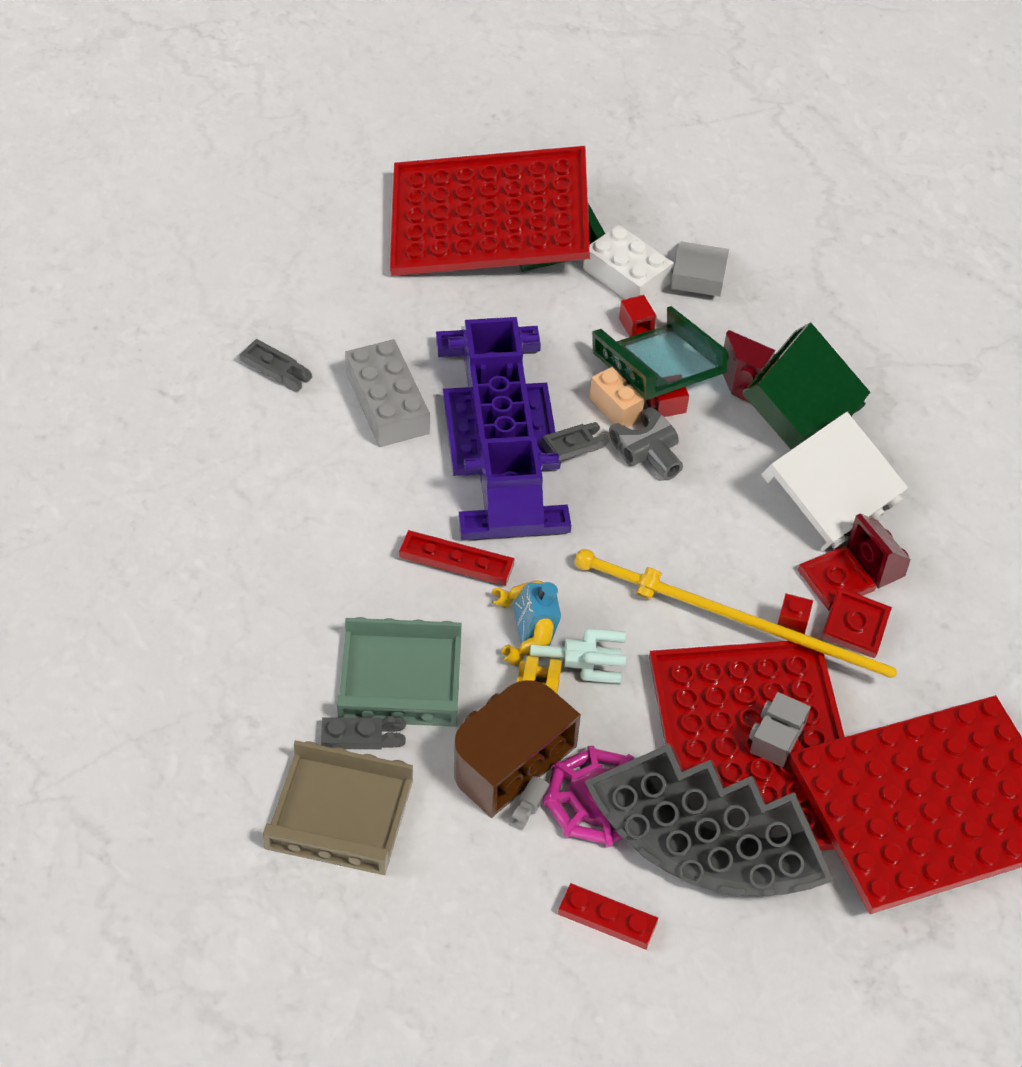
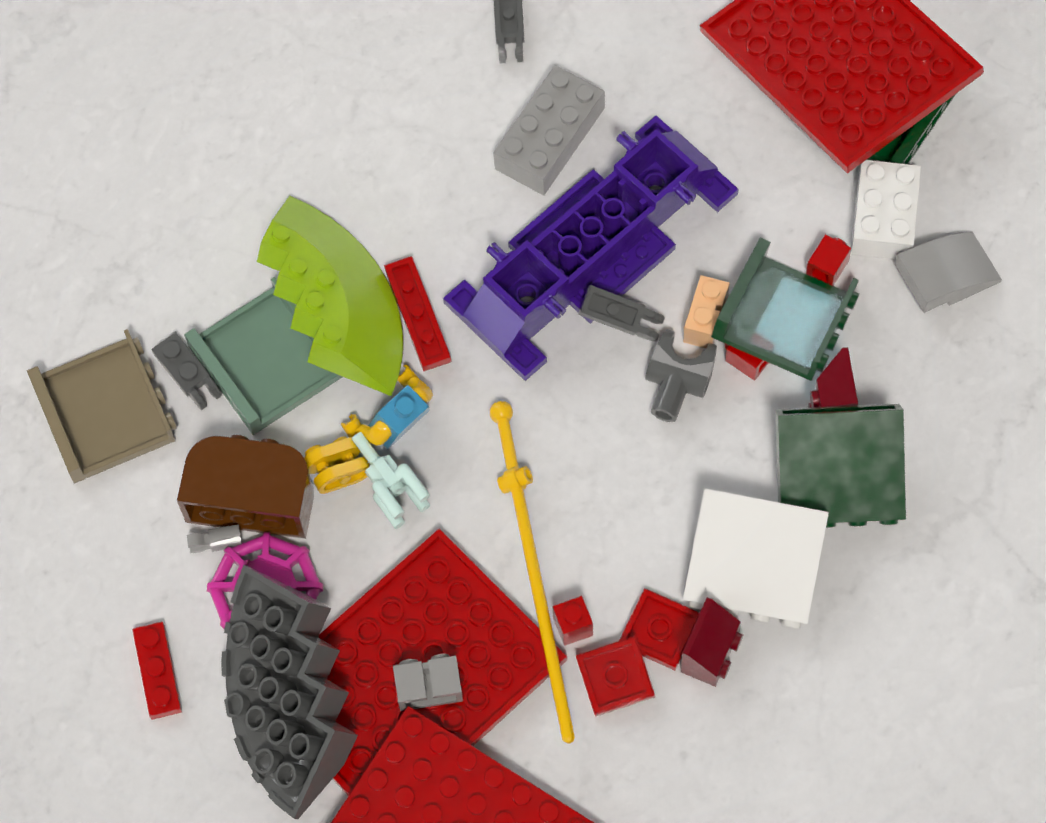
camera: 60 degrees right, 15 degrees up
(396, 589) = (337, 295): none -> lime brick

